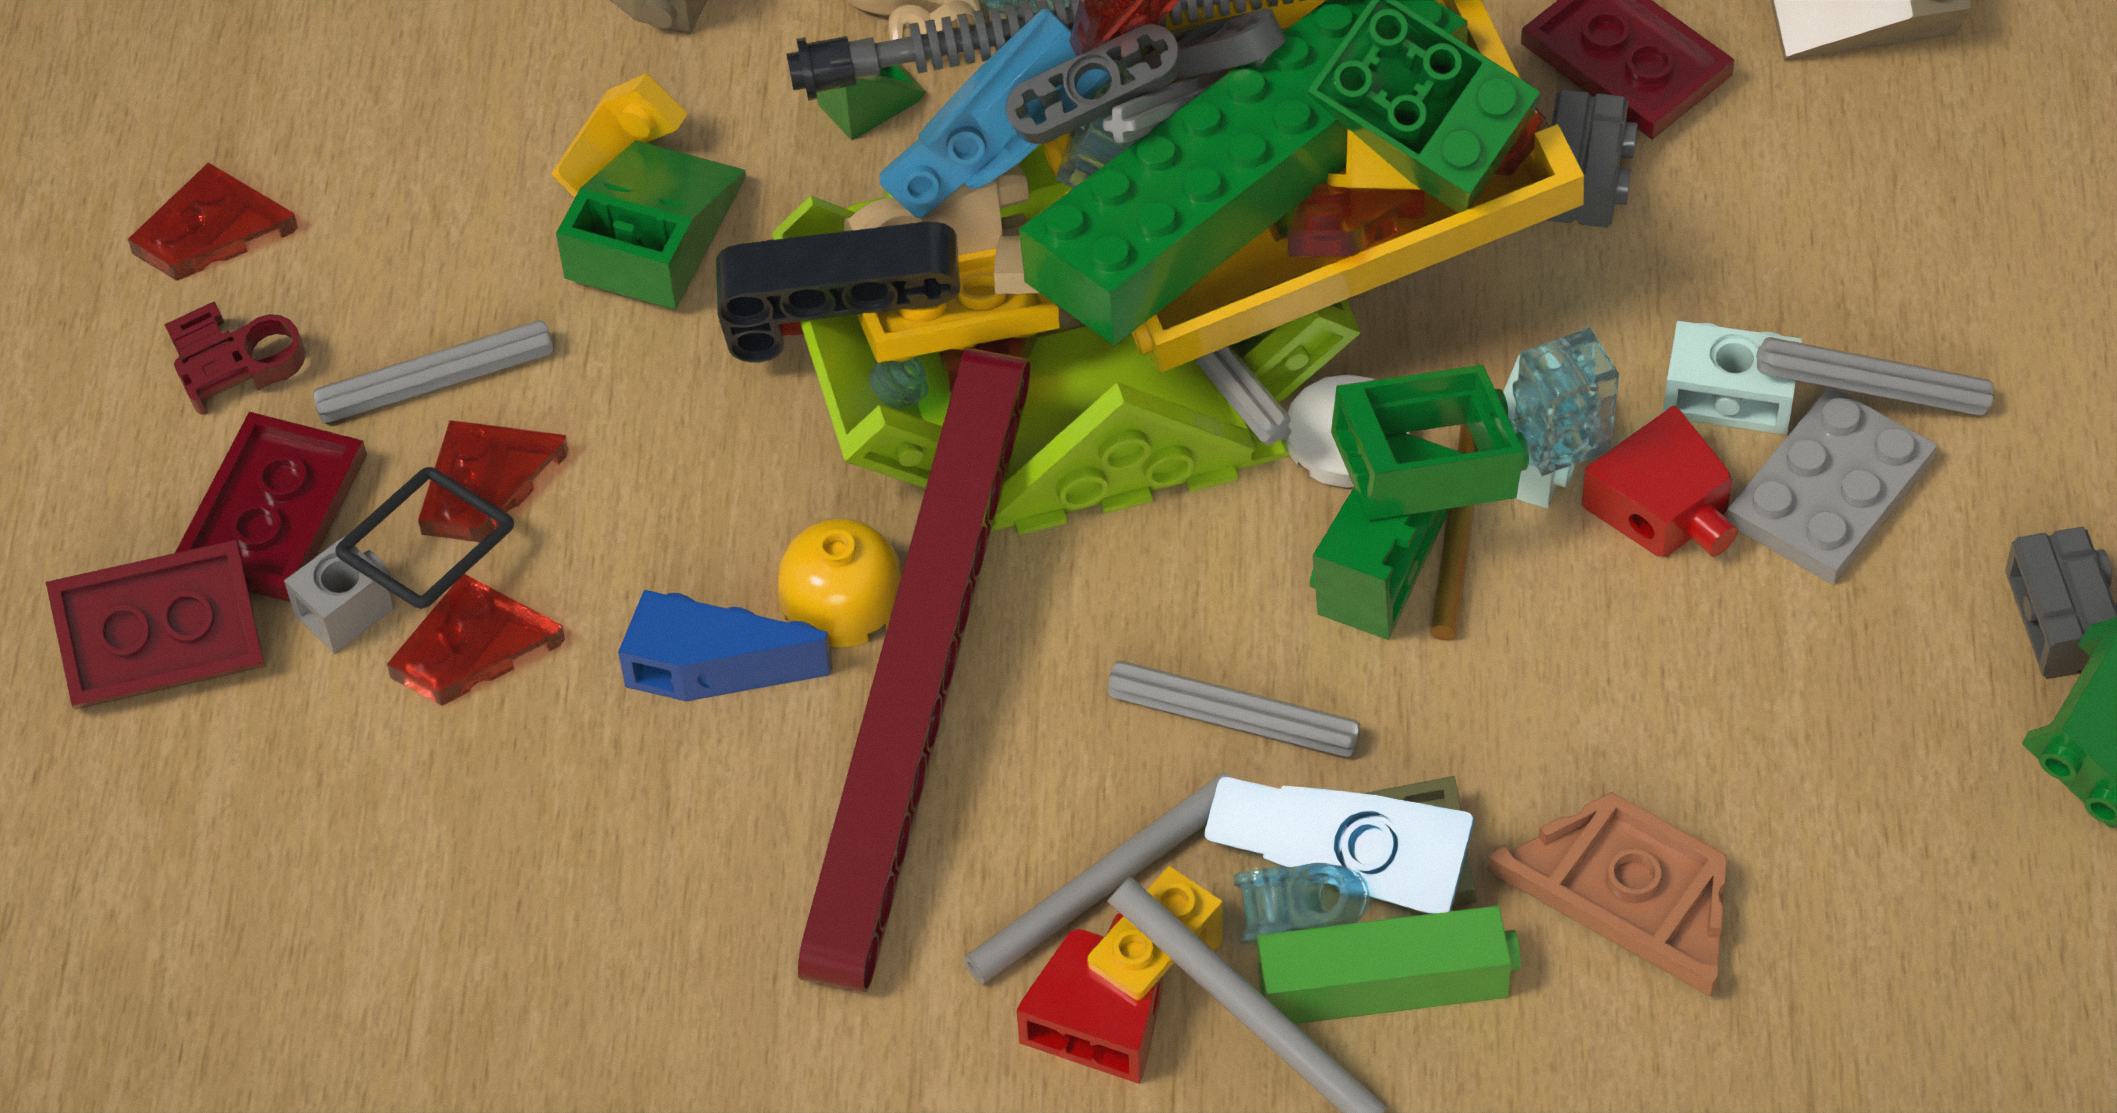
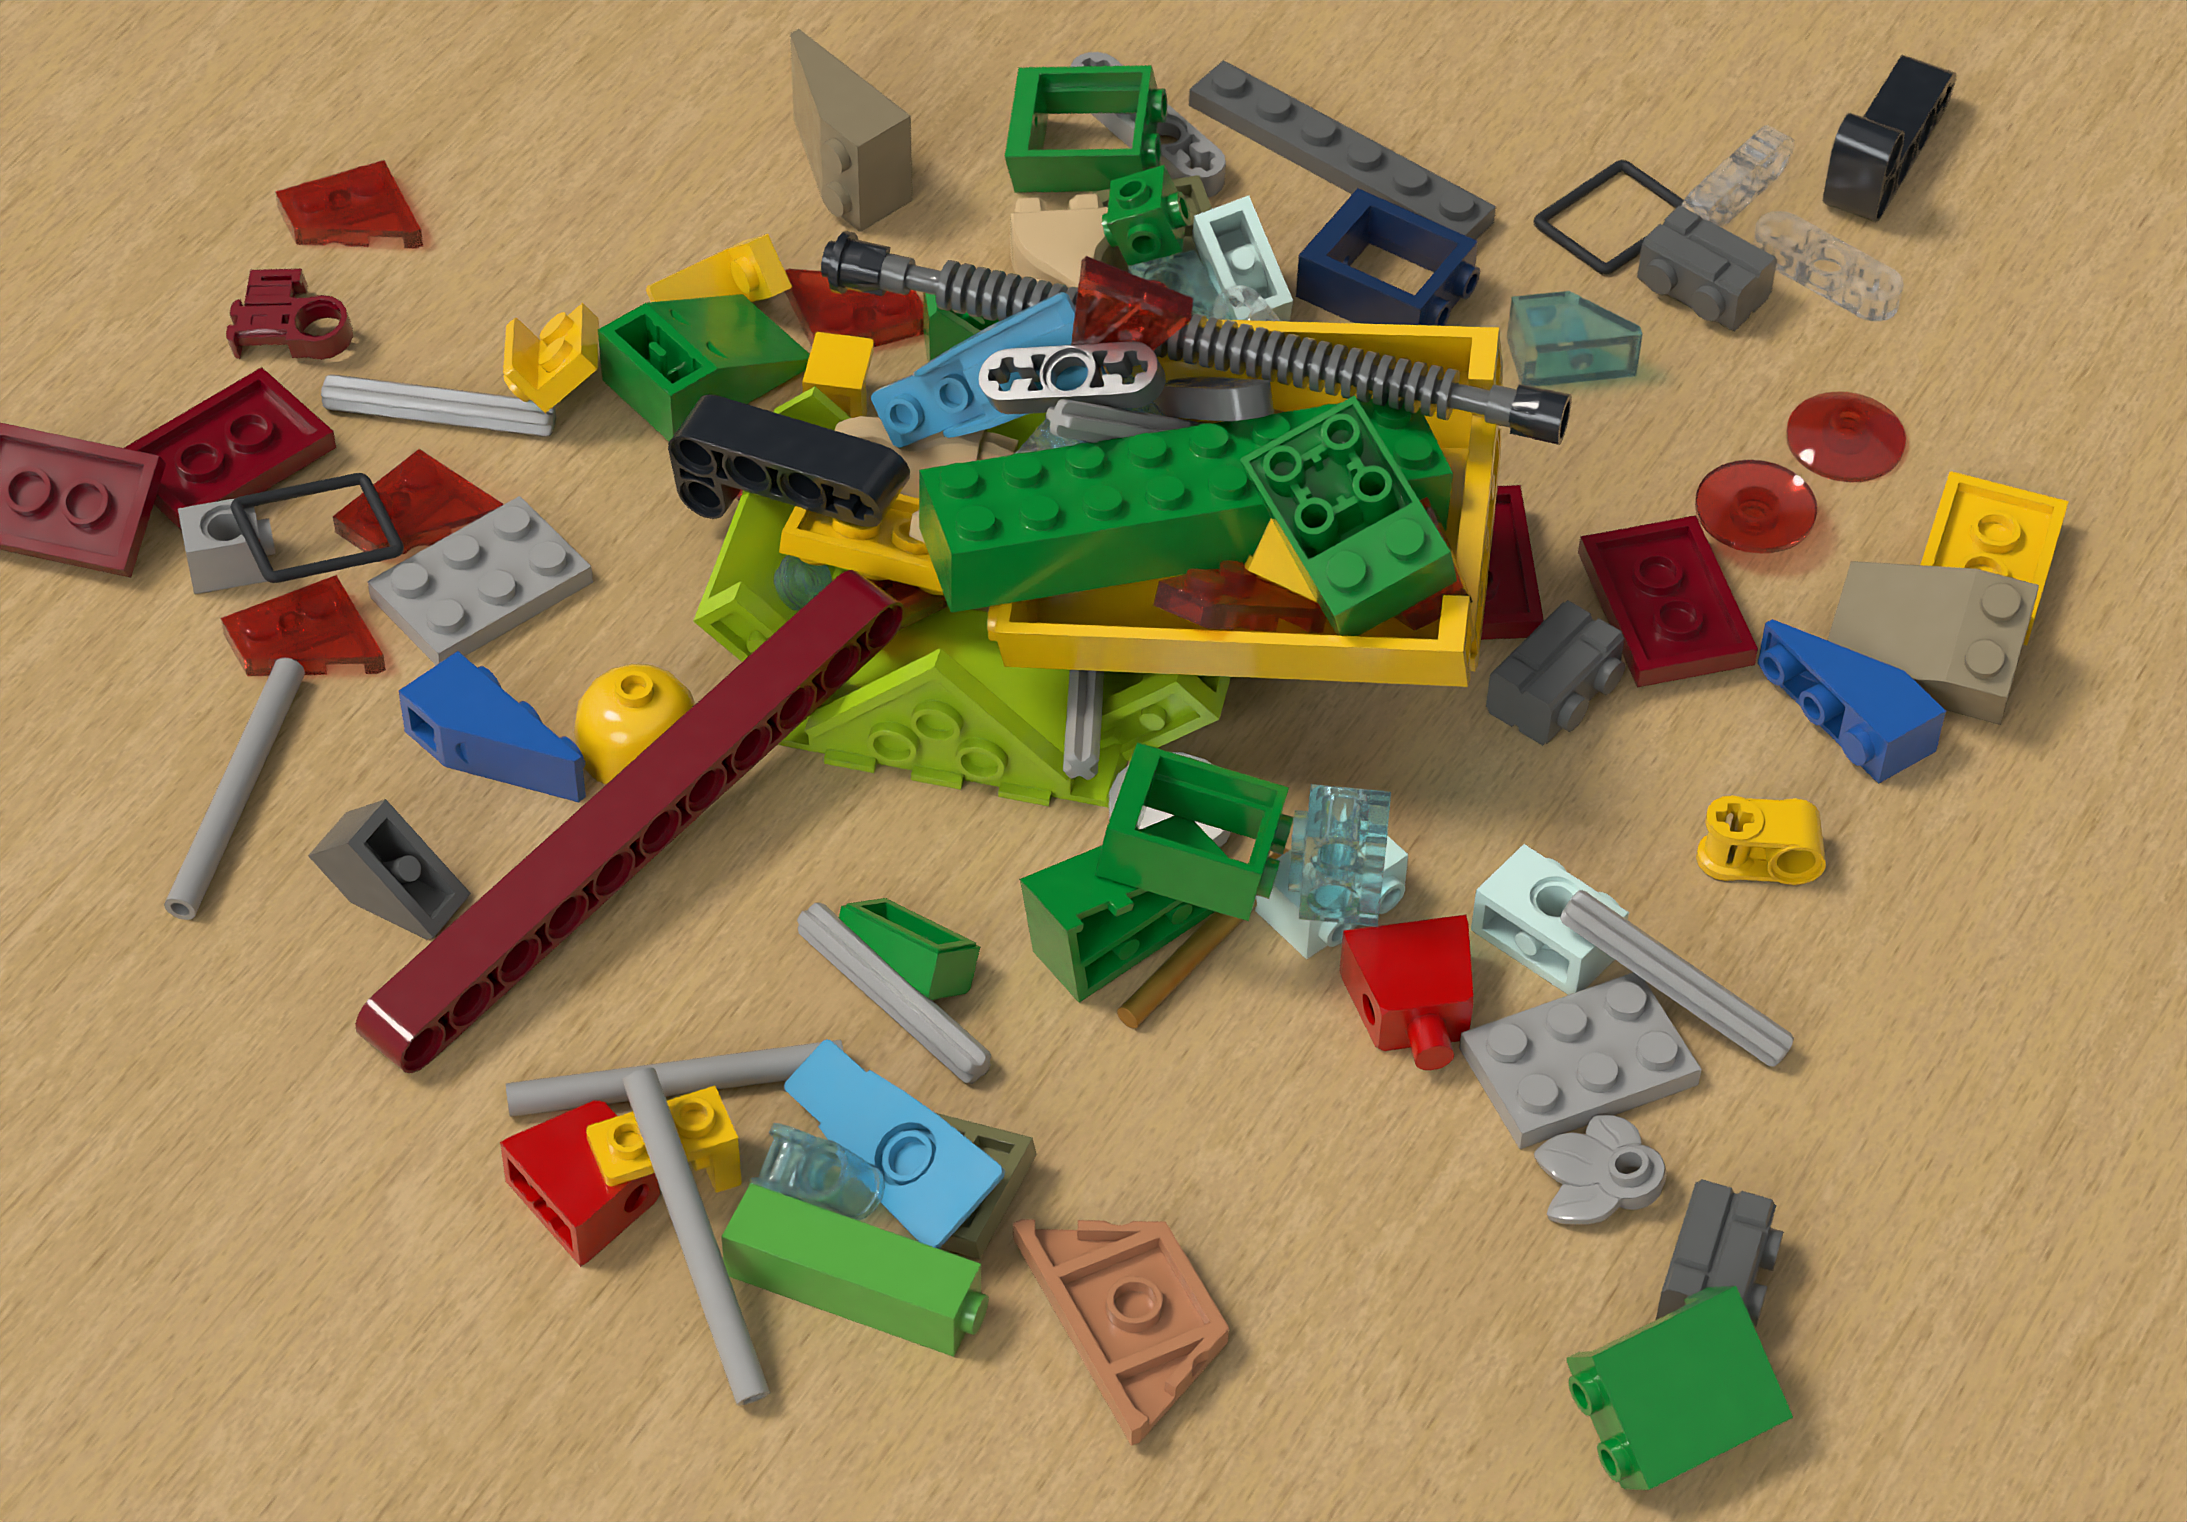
camera: 25 degrees right, 5 degrees down
(517, 814) = (234, 789): none -> light grey piece
(522, 278) = (555, 363): none -> yellow bracket
(594, 517) = (480, 581): none -> light grey plate
(719, 817) = (389, 870): none -> dark grey slope
(743, 110) = (854, 312): none -> clear red wing
(783, 175) = (840, 370): none -> yellow panel
(1229, 658) = (919, 950): none -> green slope
(1838, 66) = (1862, 703): none -> blue slope
(1851, 226) = (1768, 841): none -> yellow piece
(1909, 574) = (1597, 1169): none -> light grey plate

